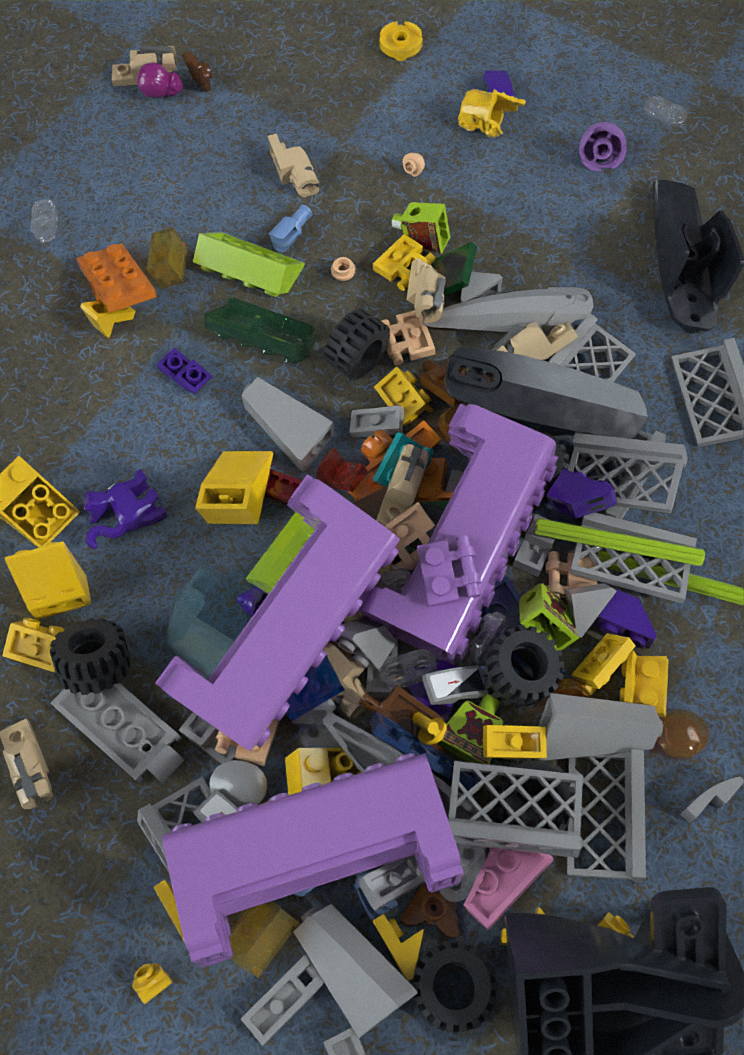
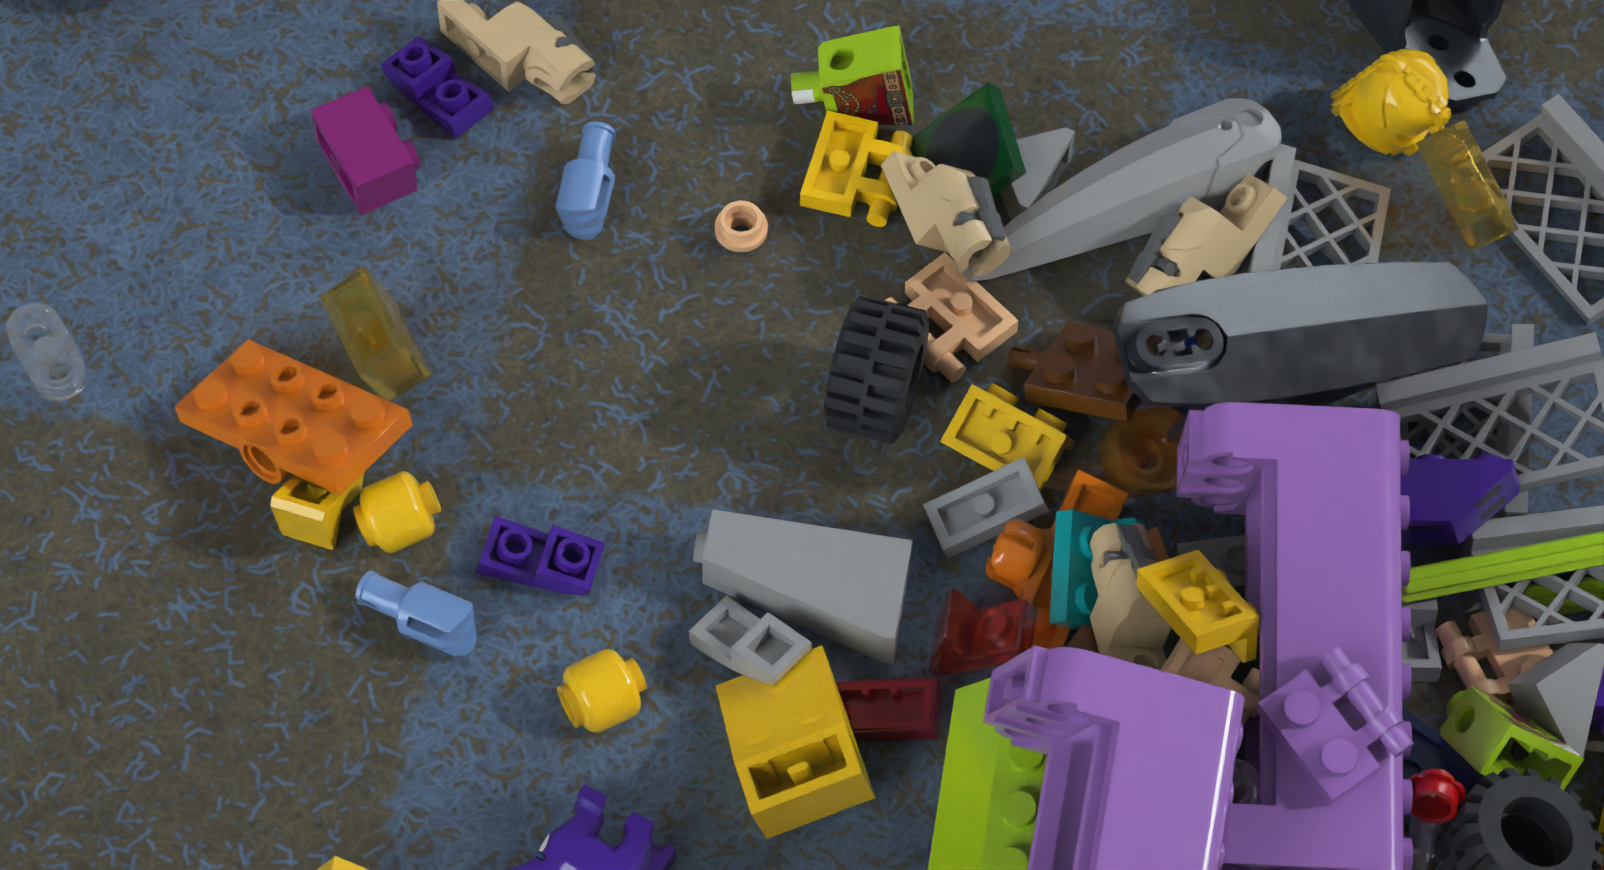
camera: 30 degrees left, 5 degrees down
(123, 375) = (422, 612): none -> medium blue arm
(136, 331) = (396, 512): none -> yellow head
(174, 434) = (601, 691): none -> yellow head
(209, 185) = (365, 149): none -> magenta brick
(244, 437) = (748, 645): none -> light grey slope
(246, 262) = (542, 285): lime slope -> none
(254, 172) = (435, 87): none -> dark purple slope
(262, 329) = (657, 410): clear green container -> none
(424, 493) = (1201, 604): none -> yellow bracket
(491, 624) = (1436, 796): none -> red plate
(654, 314) = (1395, 102): none -> yellow helmet
(669, 363) = (1467, 186): none -> clear yellow brick

